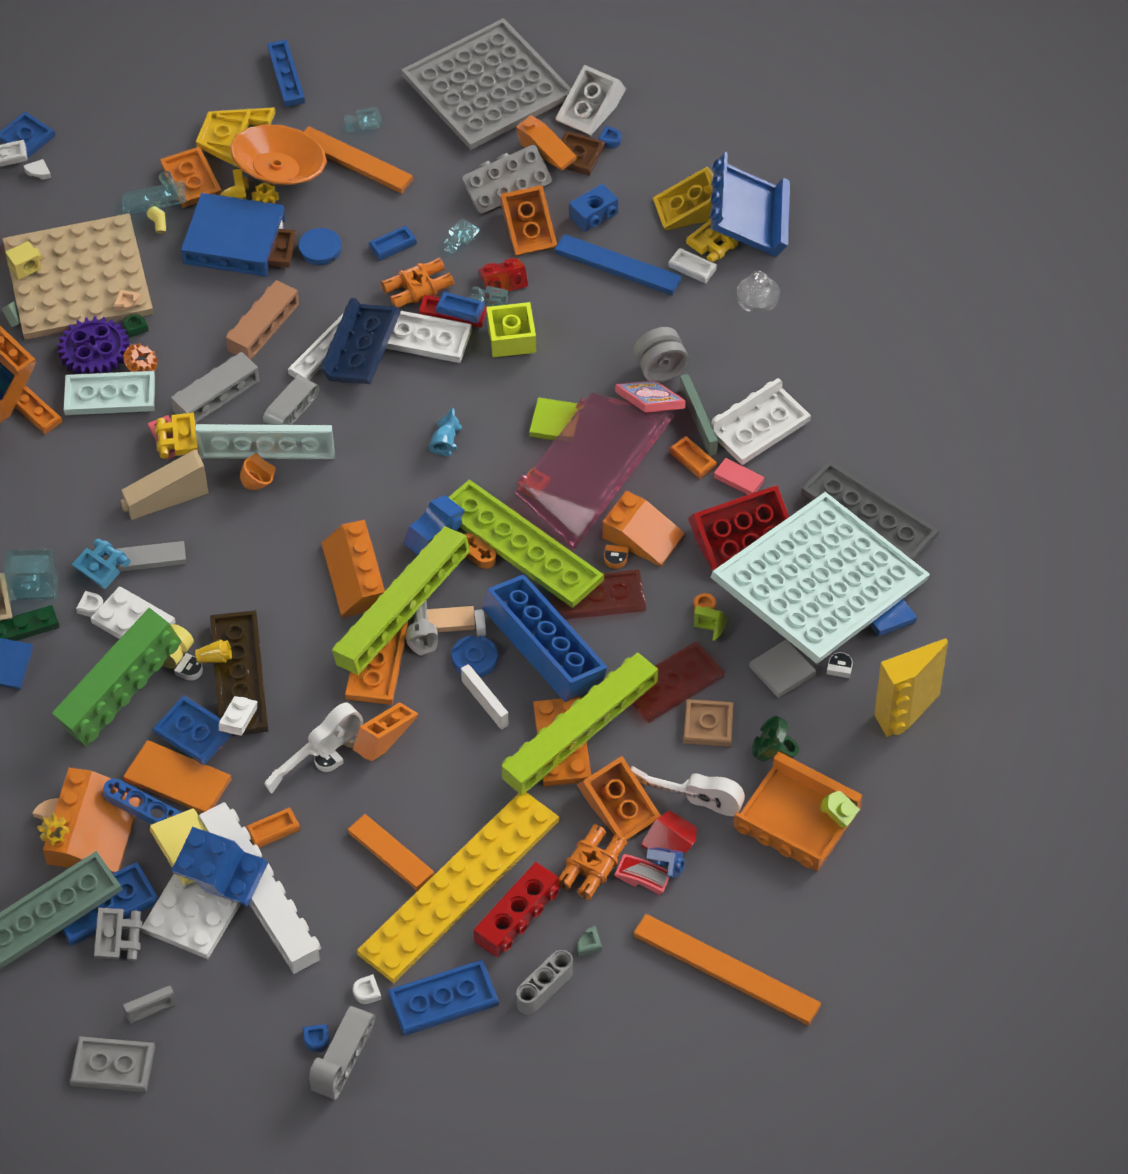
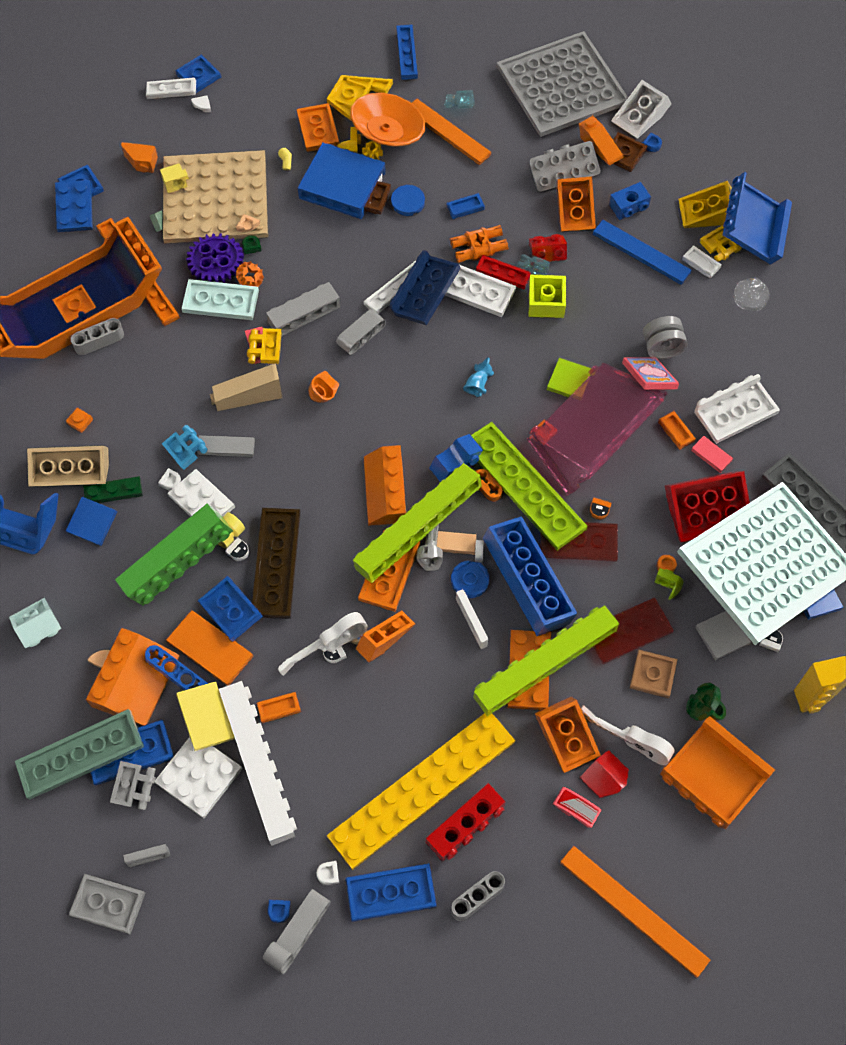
camera: 10 degrees right, 10 degrees up
(31, 574) = (126, 448): clear light blue brick -> none
(54, 836) = (94, 686): yellow gear -> none
(158, 196) = (292, 139): clear light blue piece -> none
(214, 653) = (258, 543): yellow cone -> none
(219, 866) = (224, 744): blue bracket -> none
(238, 715) = (266, 604): white plate -> none
(262, 319) = (351, 256): nougat brick -> none
(266, 440) = (333, 362): light aqua tile -> none
(391, 852) = (371, 747): orange tile -> none
(460, 307) = (509, 270): blue tile -> none
(461, 233) = (521, 206): clear light blue plate -> none
(589, 942) = (521, 862): sand green tile -> none
(591, 862) = (540, 797): orange pin -> none
(641, 528) = (625, 489): orange slope -> none
(667, 857) = (599, 796): blue bracket -> none
(698, 414) = (687, 394): sand green tile -> none
(839, 808) = (753, 778): lime plate -> none

